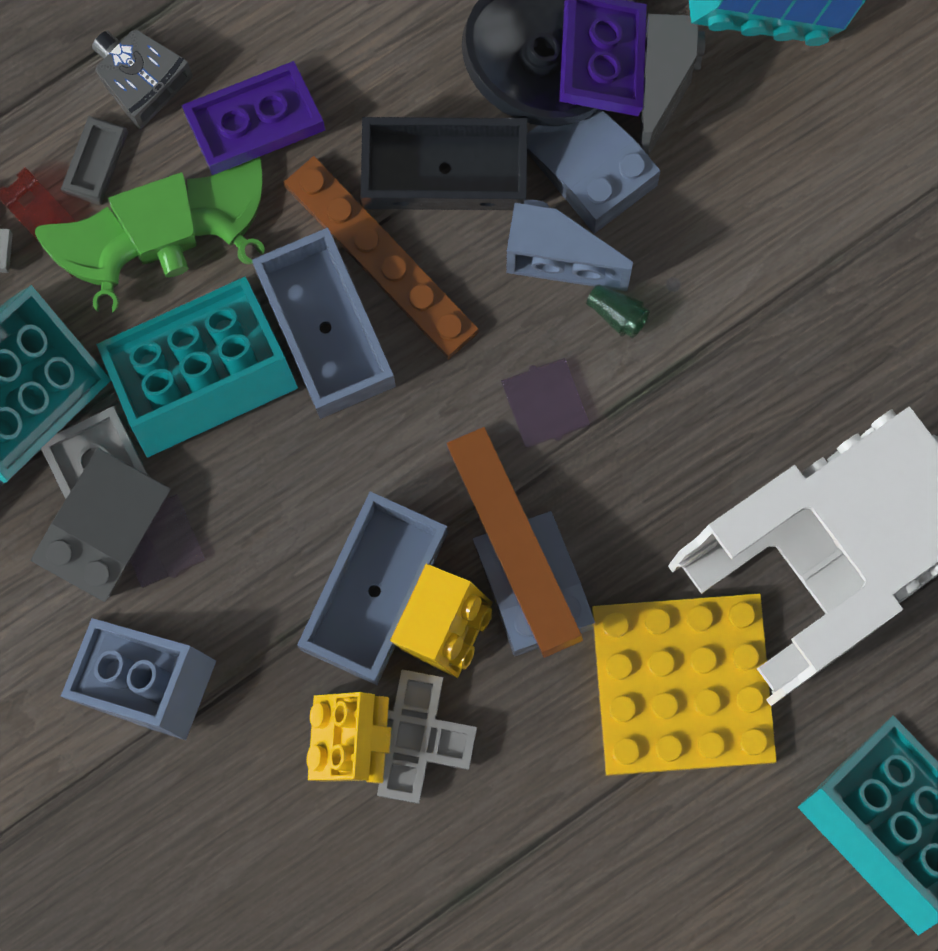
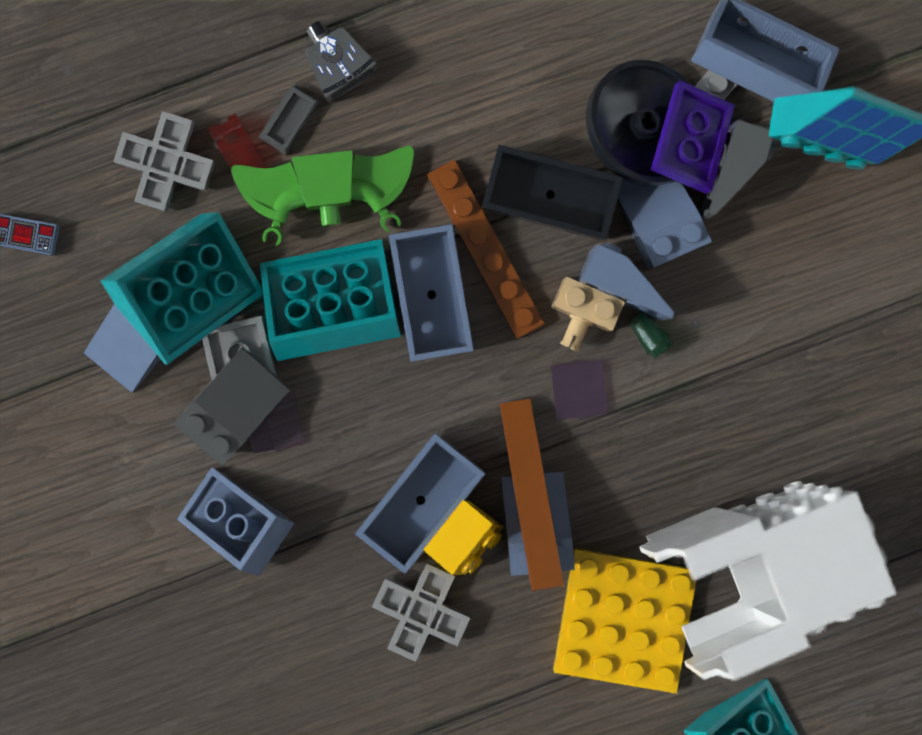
camera: 10 degrees right, 10 degrees up
(253, 117) = (416, 119): dark purple plate -> none
(348, 737) = (376, 606): yellow plate -> none
(525, 293) = (585, 308): none -> tan brick

